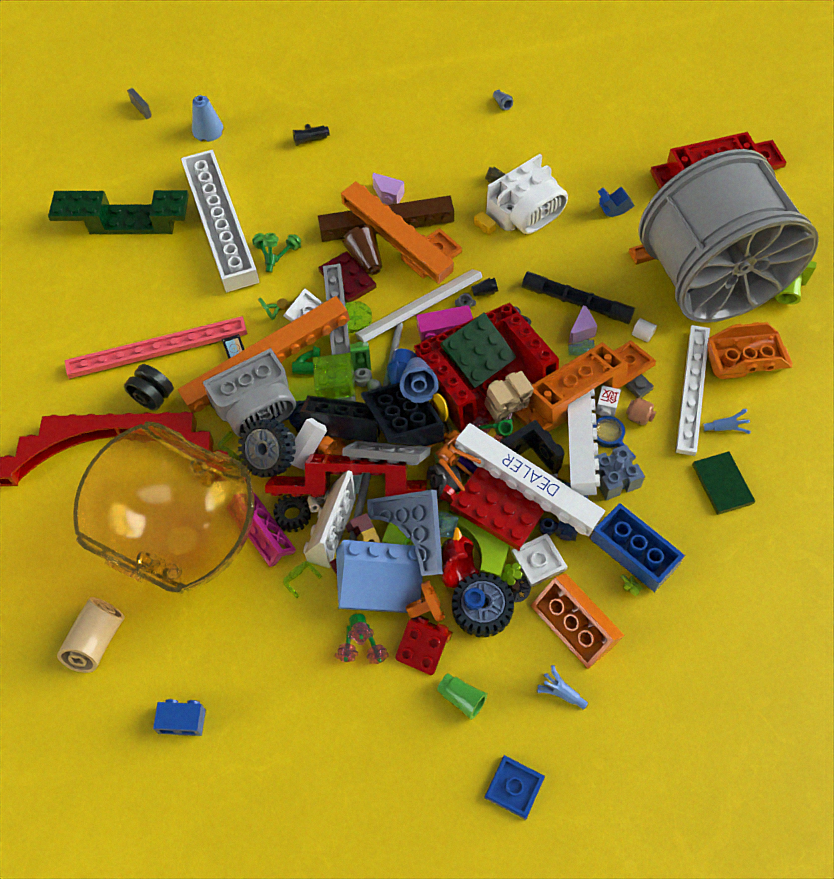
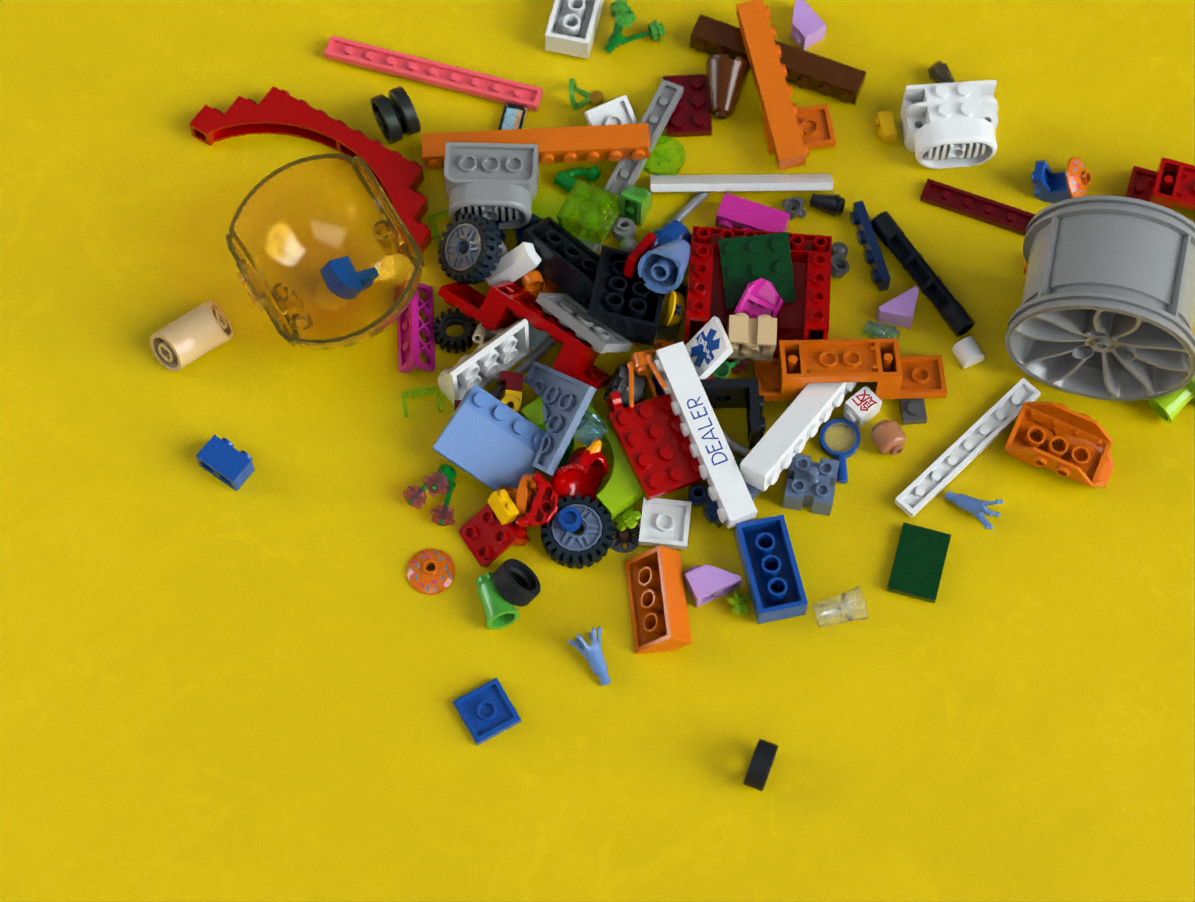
camera: 30 degrees right, 5 degrees up
(187, 522) = (344, 280): none -> blue brick
(393, 383) = (633, 259): none -> red tile
(395, 713) = (431, 581): none -> orange dish
(422, 619) = (503, 506): none -> yellow piece
(449, 600) = (542, 506): none -> red piece
(469, 671) = (506, 578): none -> black tyre
(489, 416) = (709, 348): none -> white tile
(496, 367) = (759, 299): none -> dark pink slope
(533, 298) = (872, 252): none -> dark blue plate
(587, 239) = (976, 207): none -> dark red tile
(602, 583) = (709, 583): none -> lavender slope
(628, 189) = (1077, 177): none -> orange dish
(703, 544) = (841, 608): none -> clear plant
(742, 694) = (760, 764): none -> black tyre

